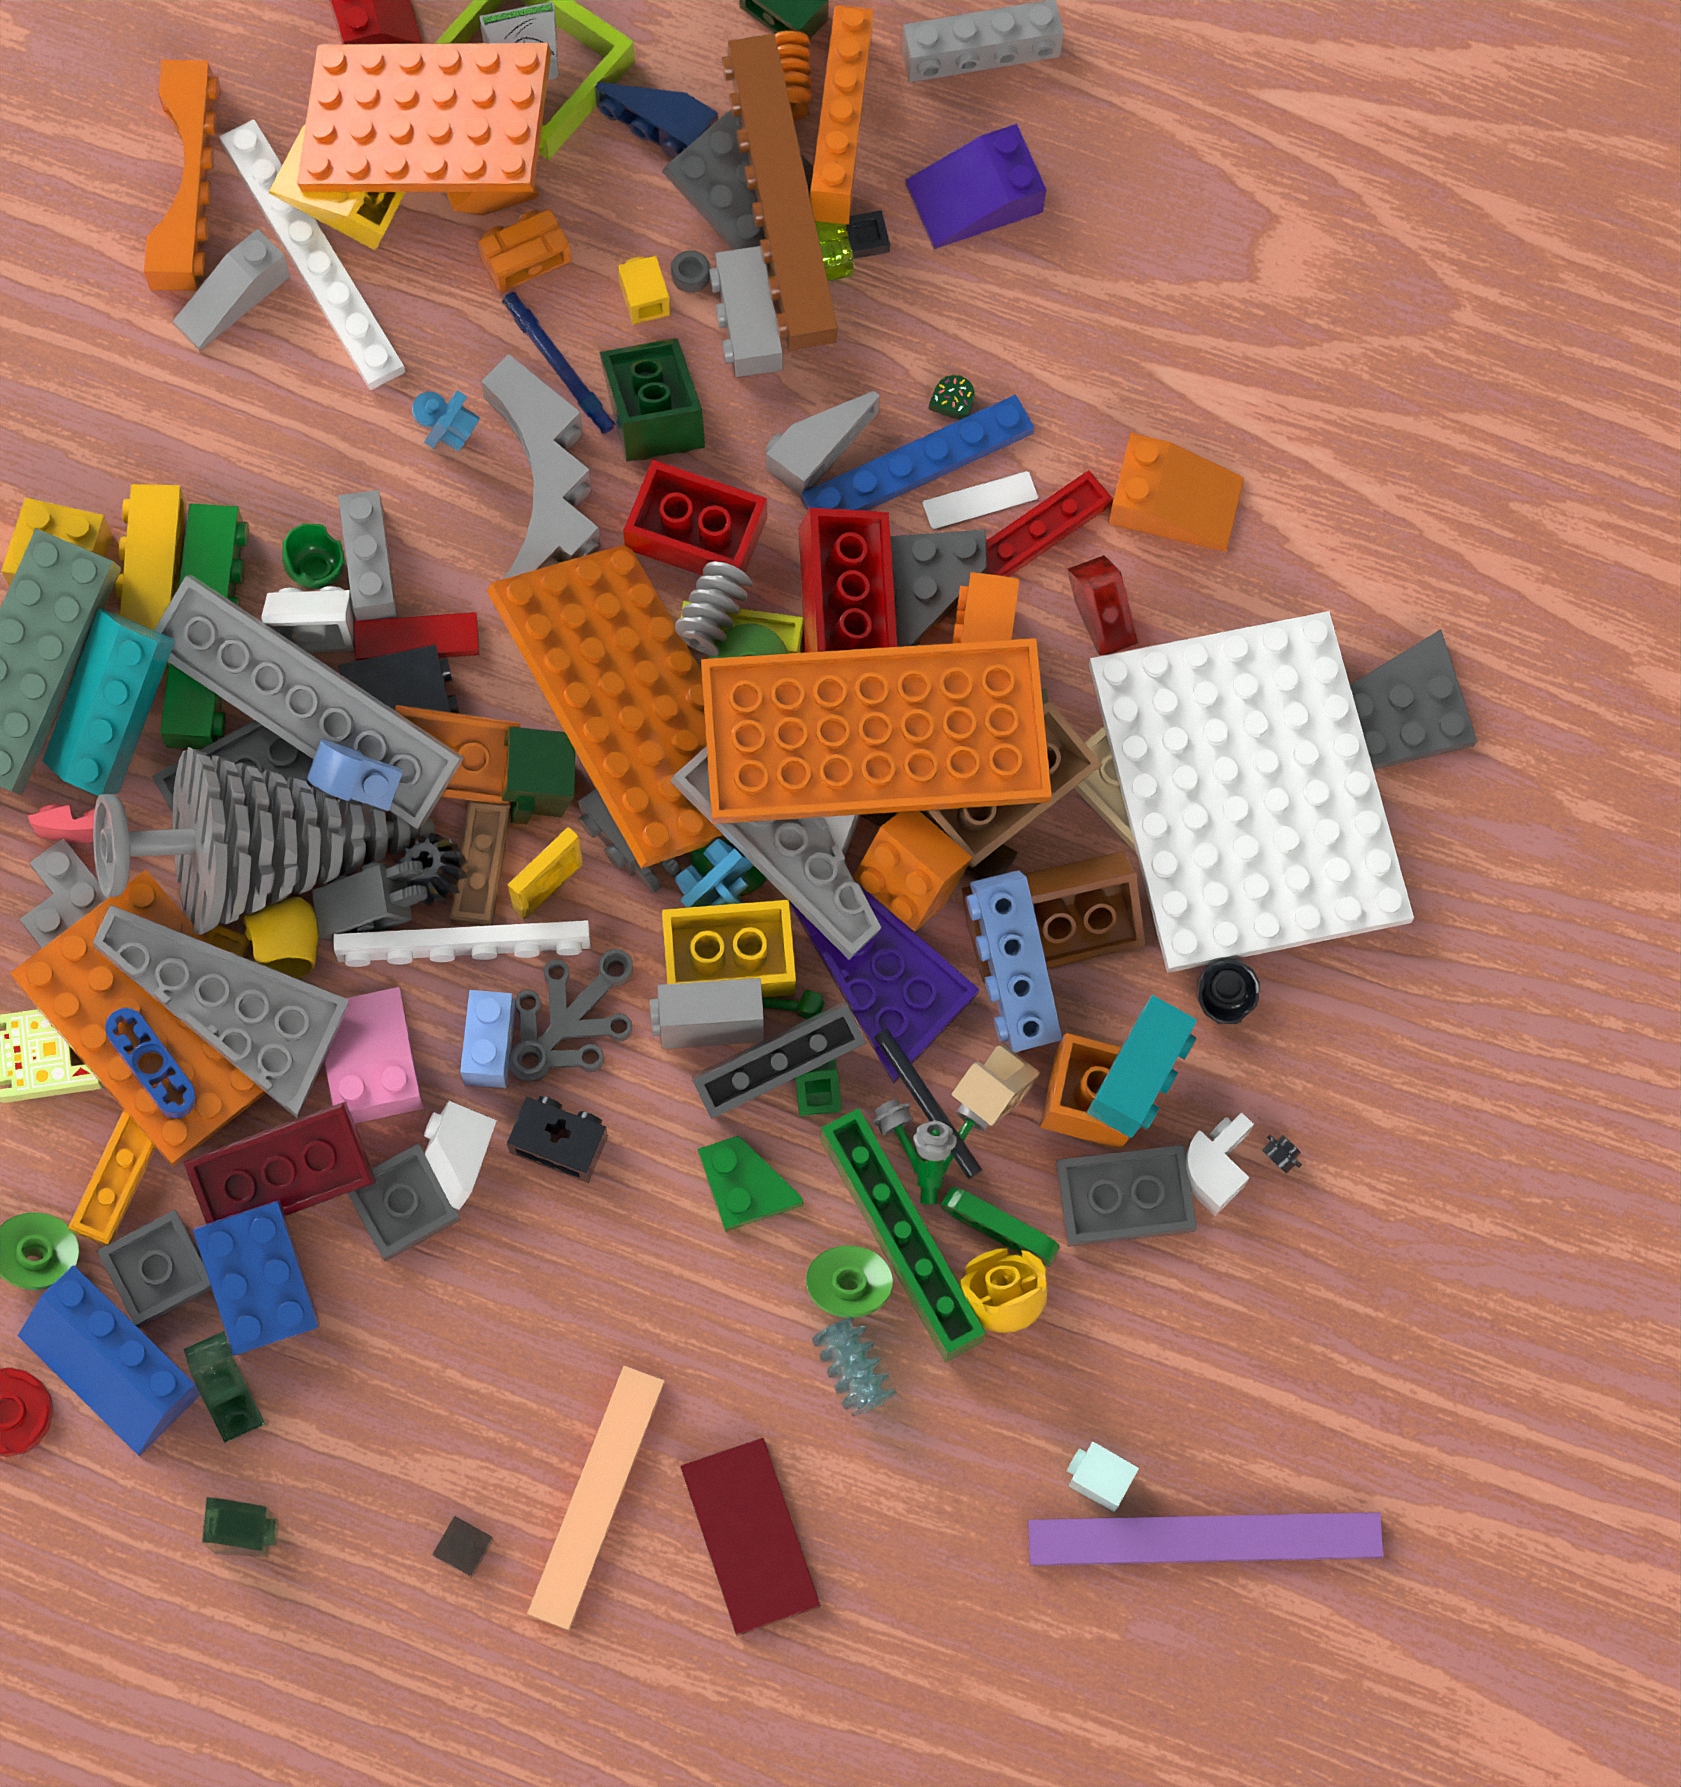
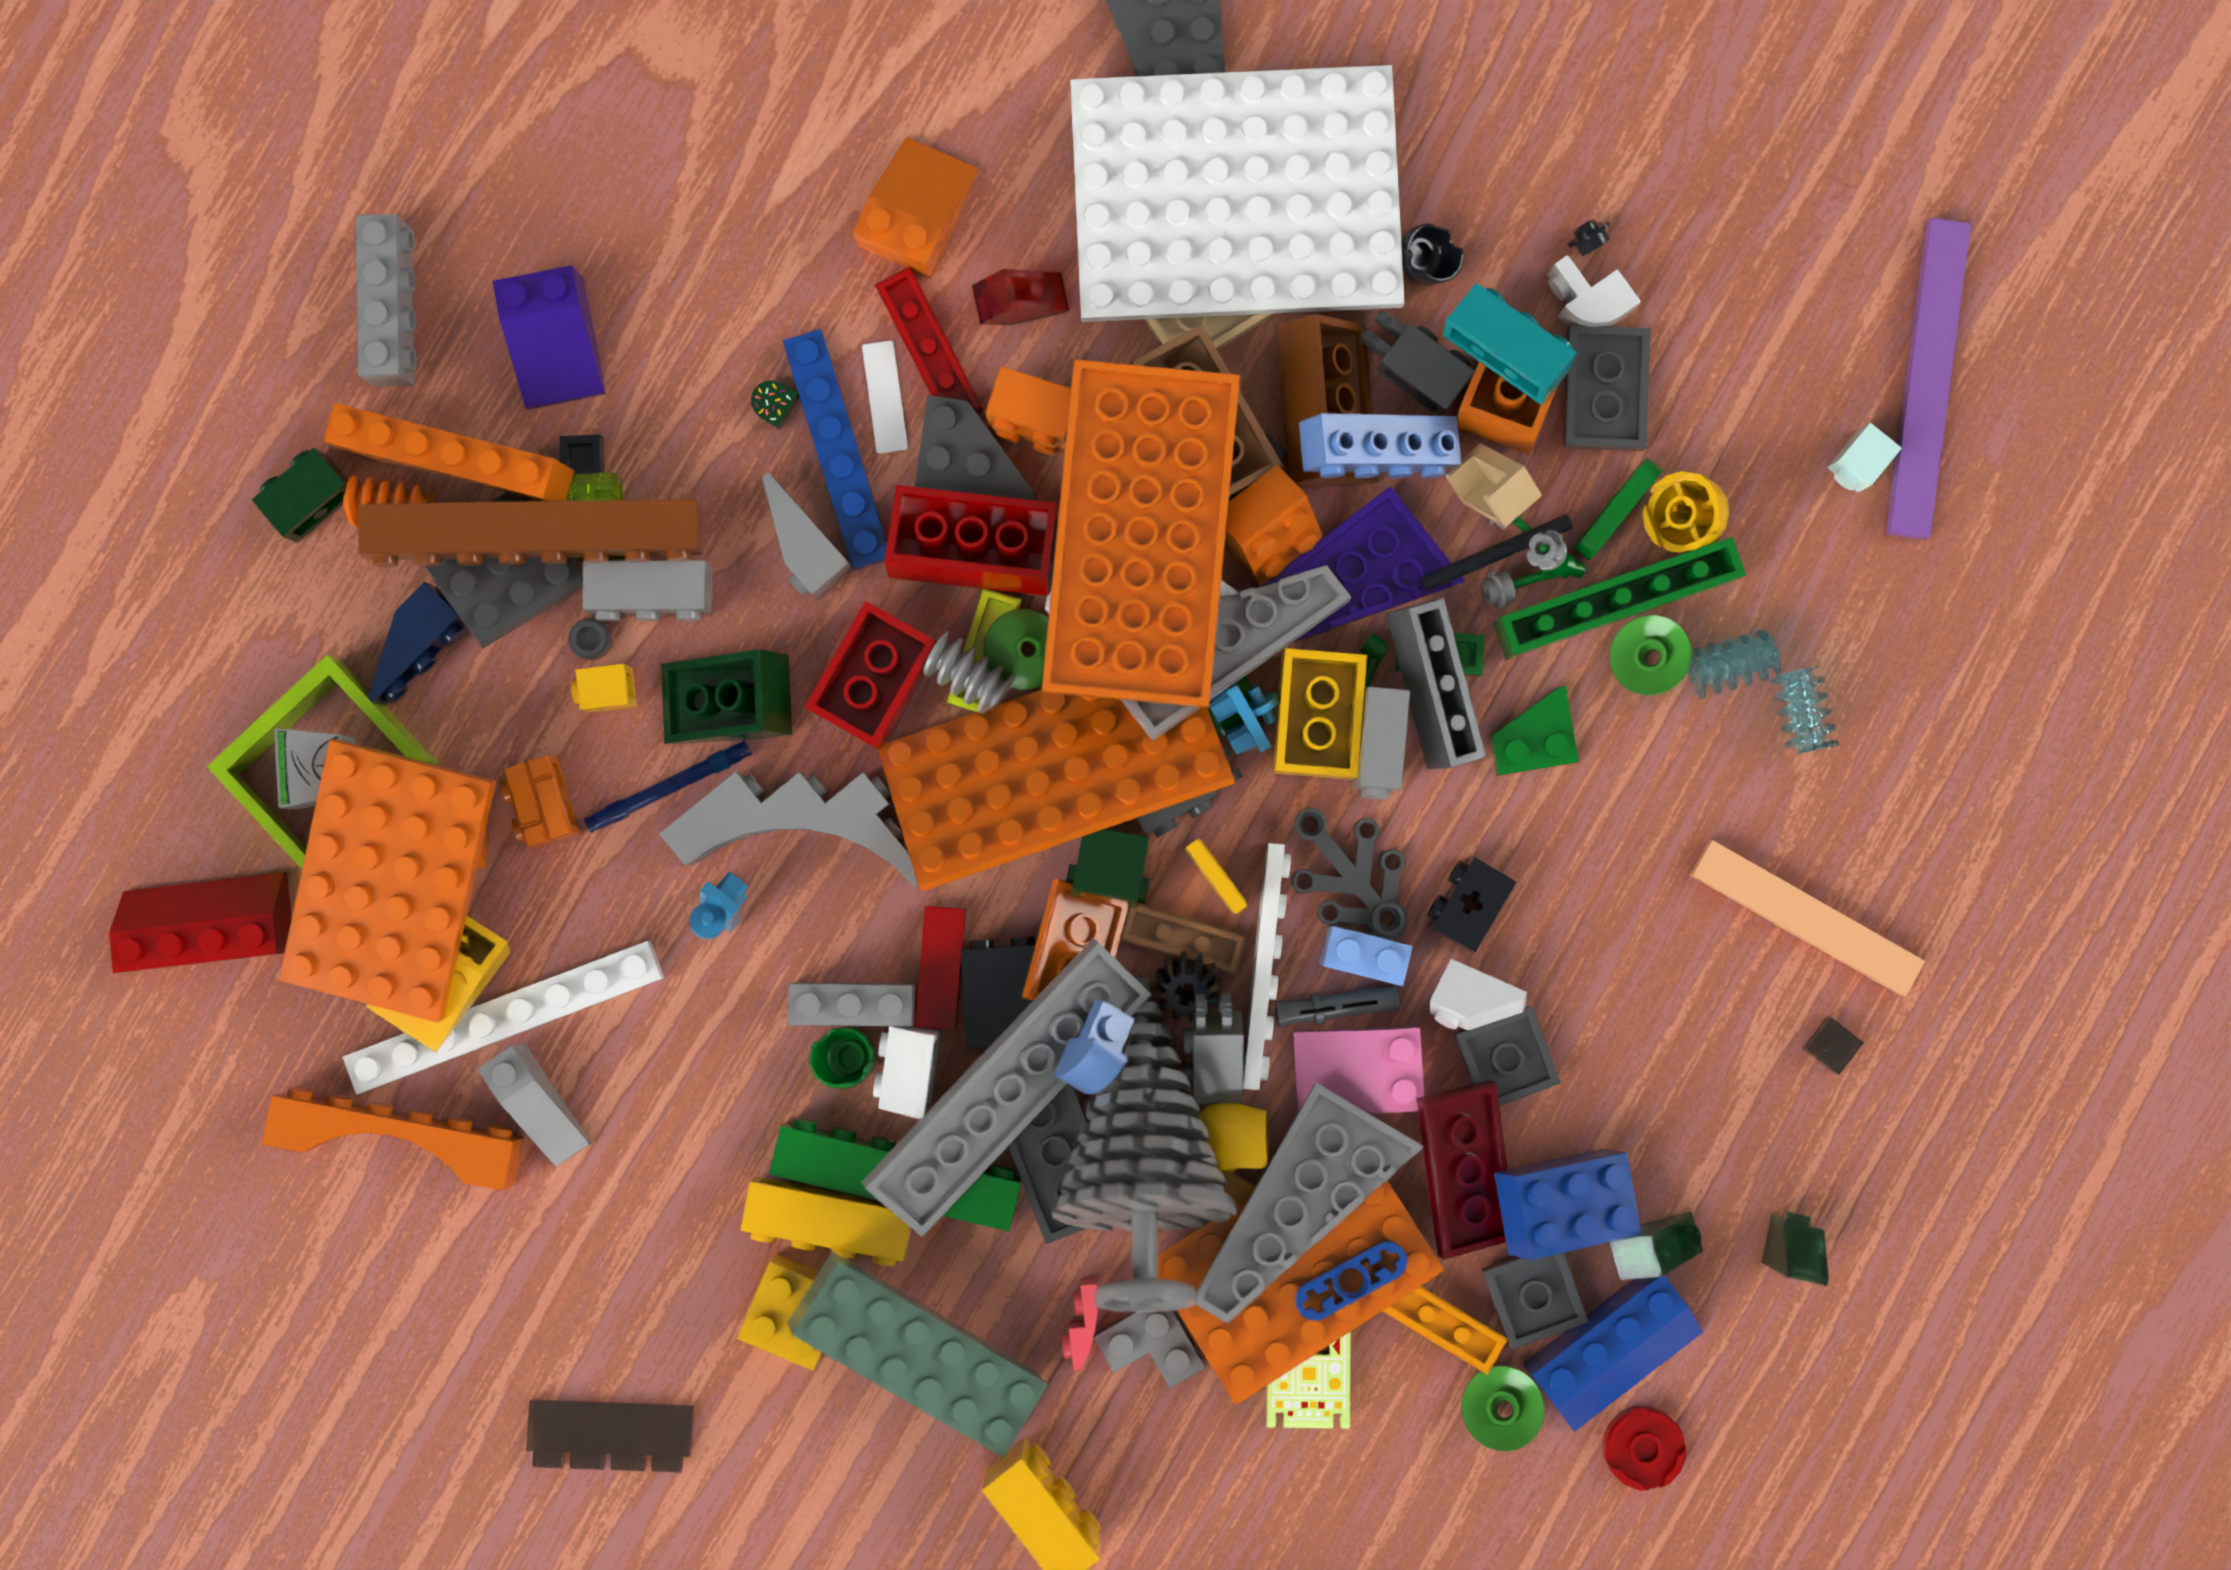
camera: 75 degrees left, 15 degrees up
(107, 703) = (972, 1281): teal slope -> none
(419, 977) = (1289, 1011): none -> dark grey pin
(750, 1536) = (1863, 785): dark red tile -> none
(818, 1451) = (1804, 710): none -> clear light blue piece
(1113, 997) = (1419, 363): none -> dark grey hinge

